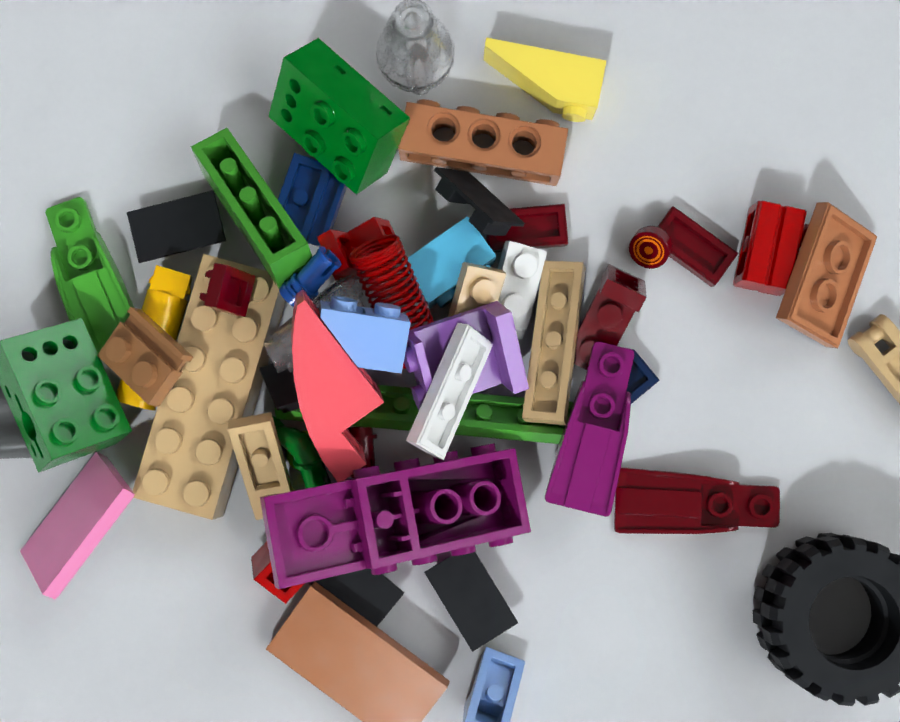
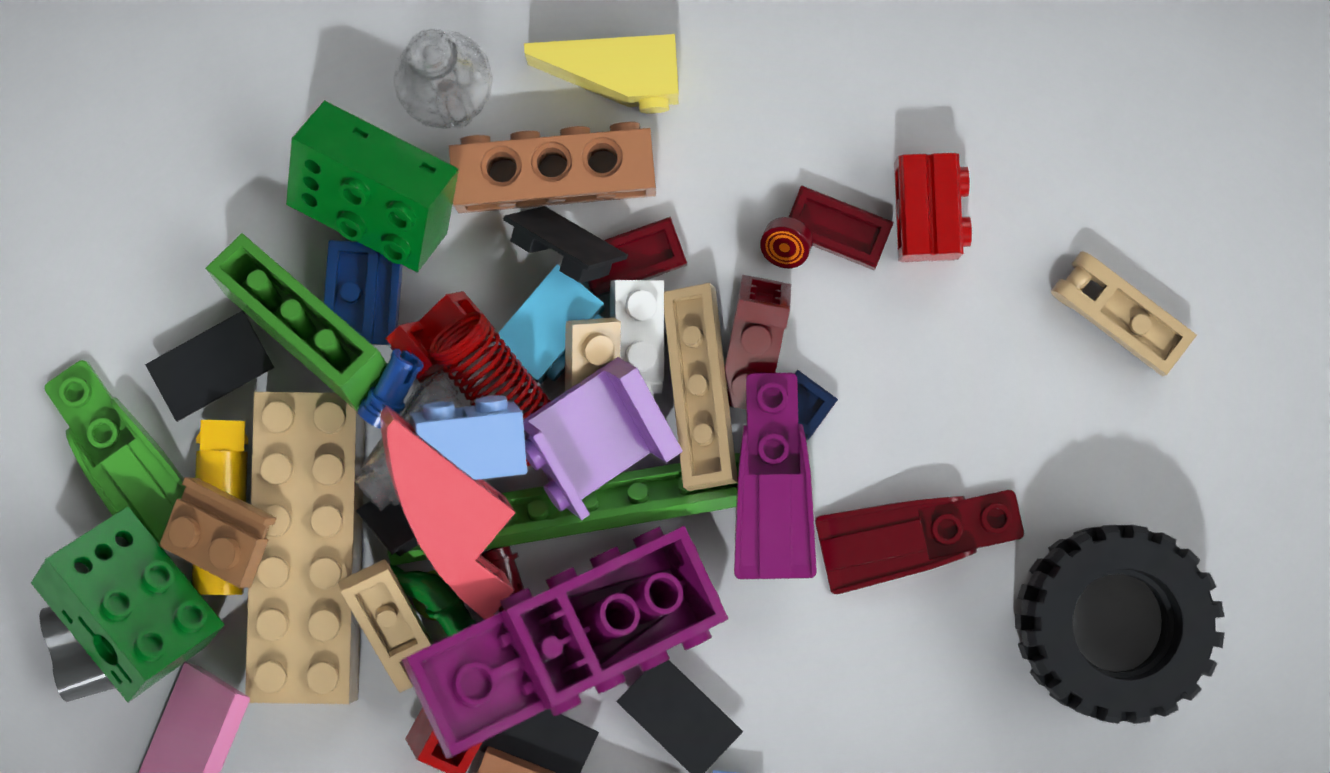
camera: 15 degrees left, 0 degrees up
(228, 290) = (298, 428): dark red tile -> none
(450, 391) = (589, 479): white tile -> none
(826, 275) = (1003, 223): nougat tile -> none

